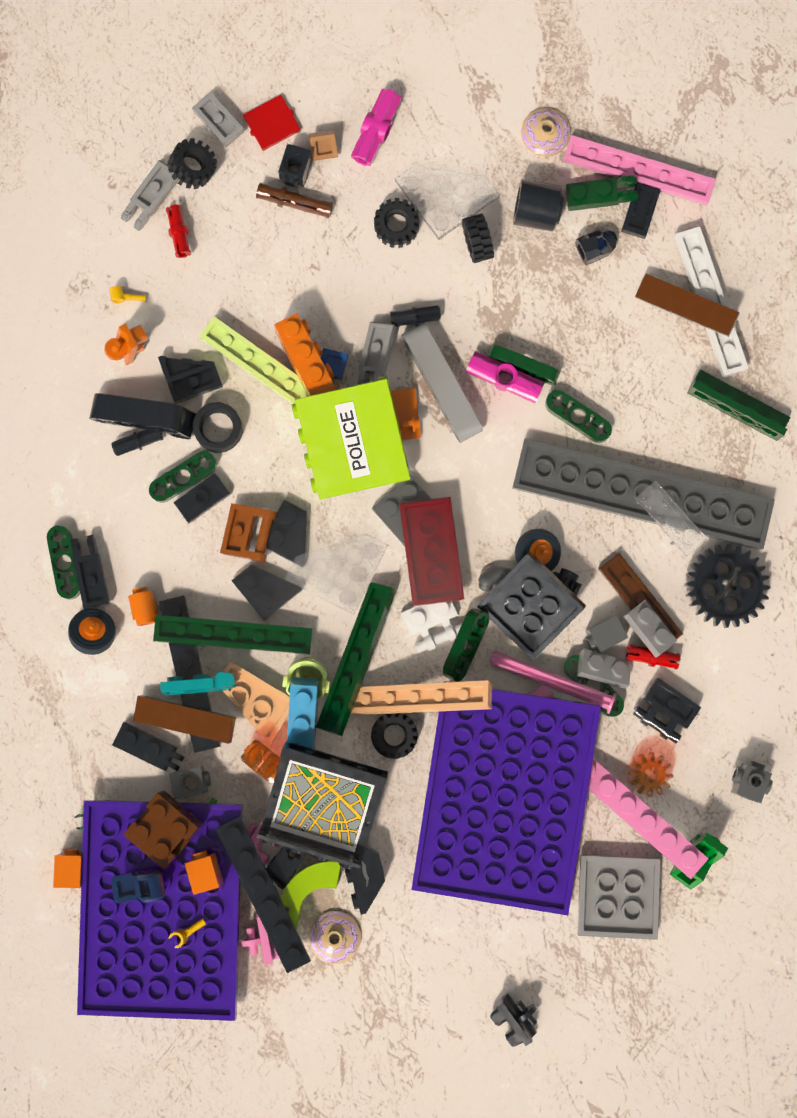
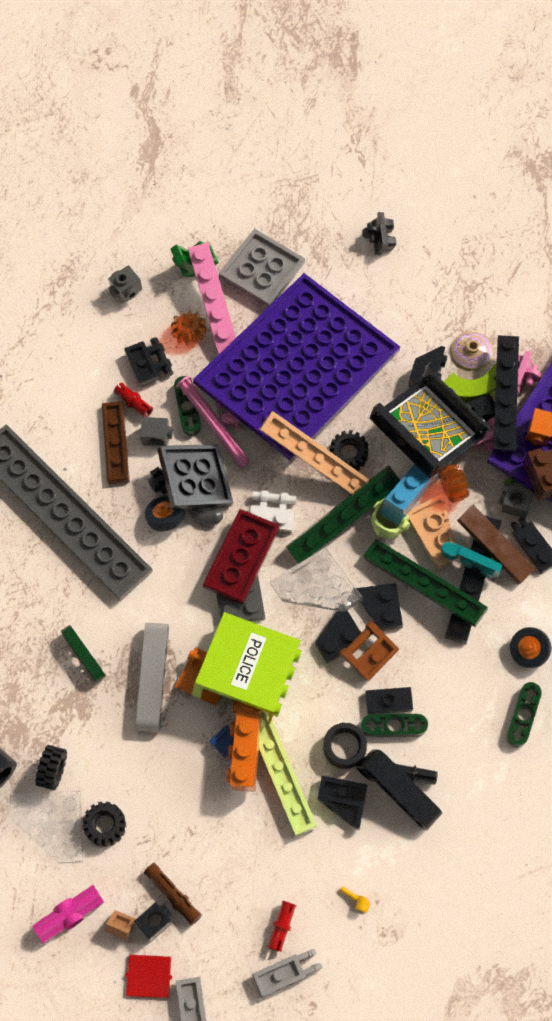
camera: 145 degrees left, 15 degrees down
(90, 575) = (509, 691): black hinge -> none
(126, 344) = (379, 850): orange hips -> none
(143, 606) = (480, 643): orange brick -> none
(186, 174) = (248, 977): black tyre -> none
(376, 351) = (188, 728): light grey hinge -> none
(415, 315) = (138, 741): black axle -> none
(471, 630) = (258, 481): dark green beam -> none
(489, 369) = (110, 662): dark pink piece -> none
(558, 412) = (69, 609): dark green beam -> none
(604, 668) = (172, 409): light grey plate -> none
(650, 628) = (122, 415): light grey plate -> none
(671, 518) = (55, 479): clear plate -> none
(746, 599) = (41, 400): black gear -> none

